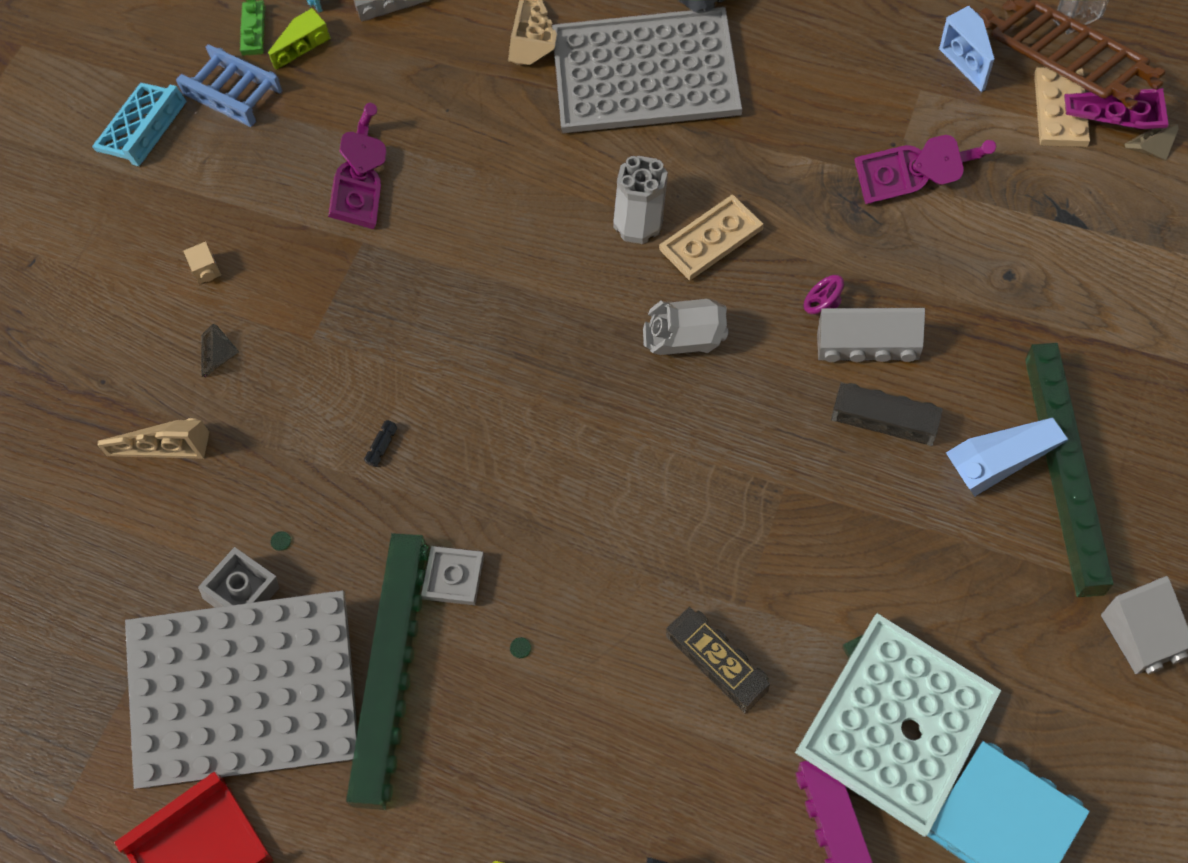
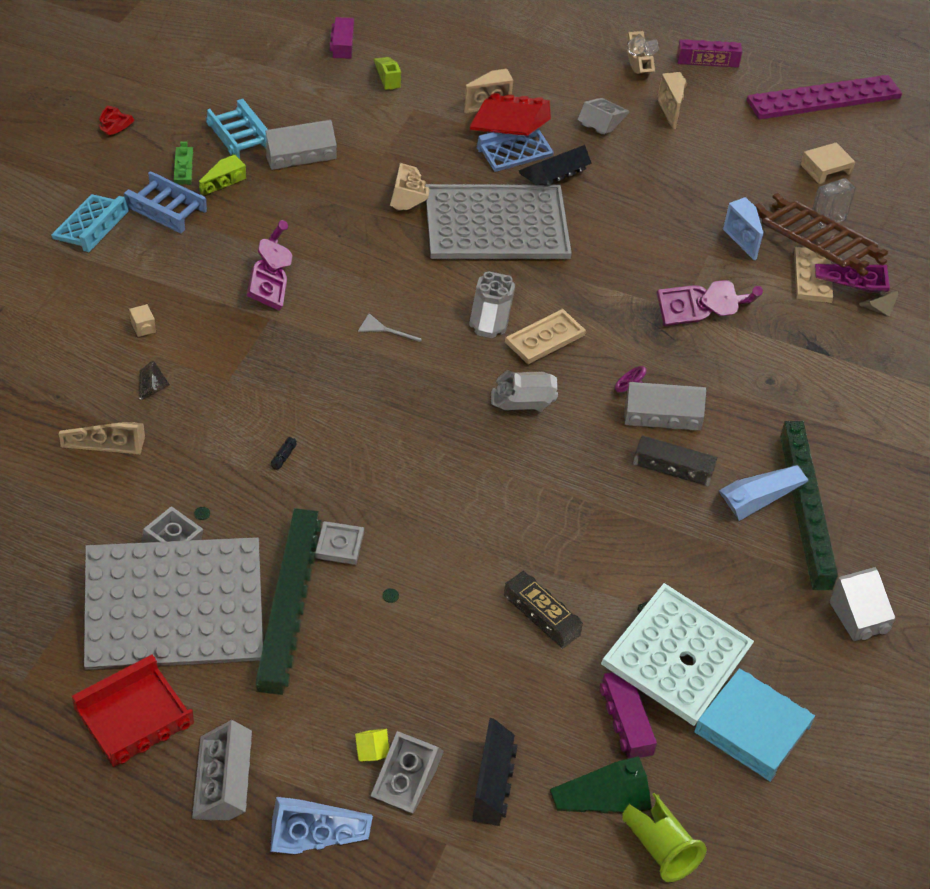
camera: 10 degrees left, 15 degrees down
(491, 239) = (373, 325): none -> light grey piece

